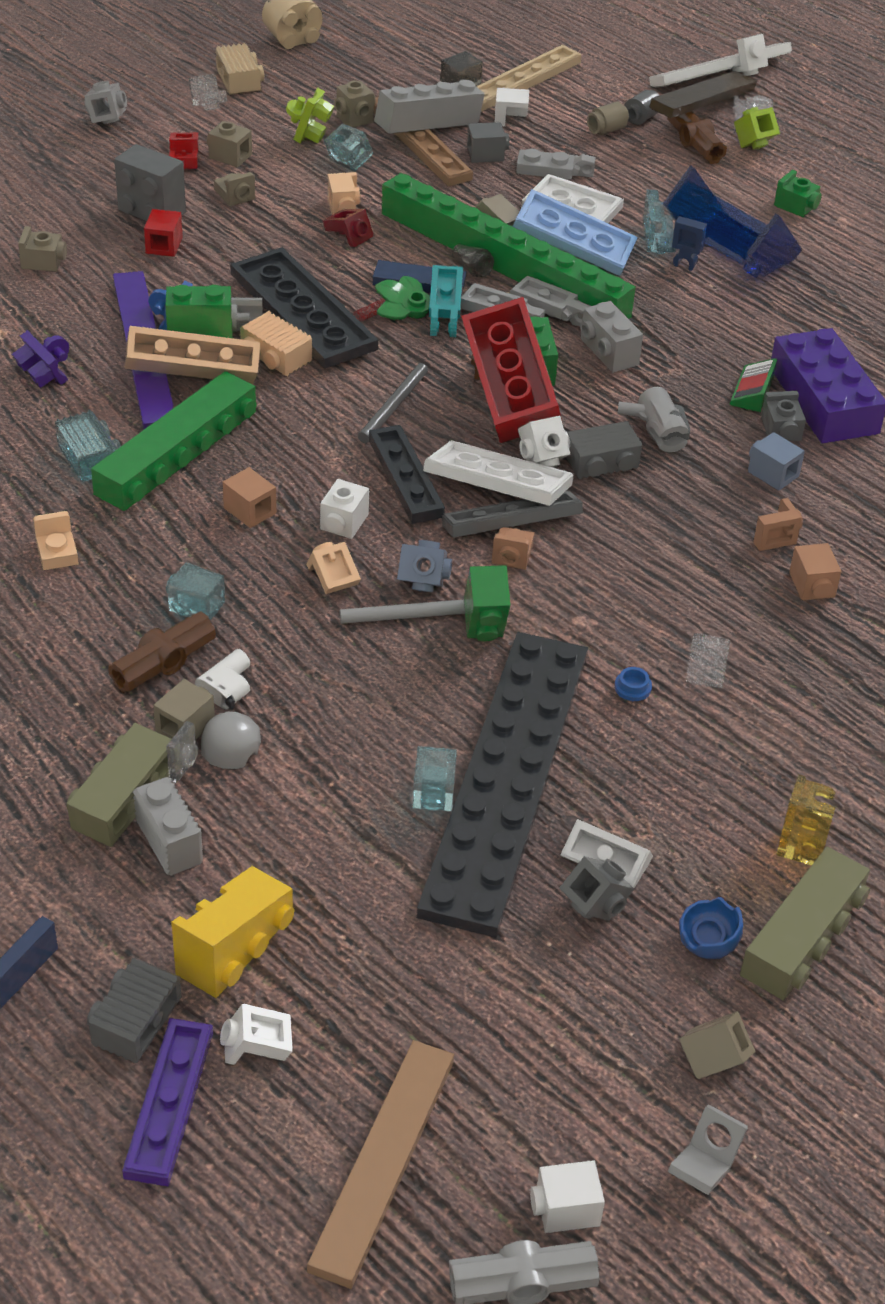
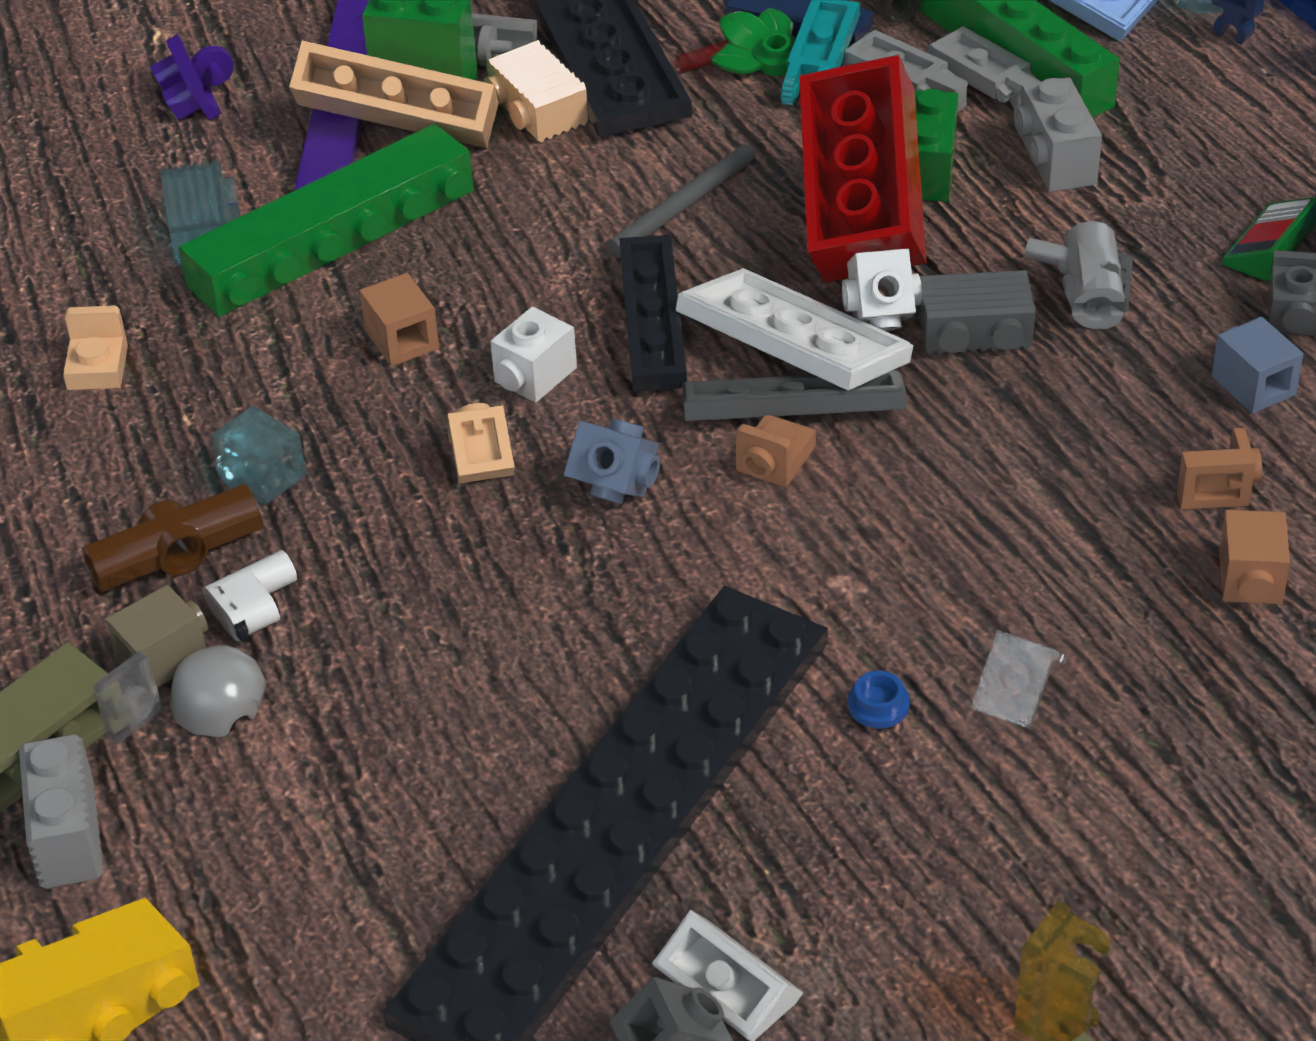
camera: 20 degrees right, 0 degrees up
(402, 611) = (577, 528): light grey bar -> none
(434, 778) = (489, 804): clear light blue brick -> none
(486, 602) = (677, 531): green brick -> none

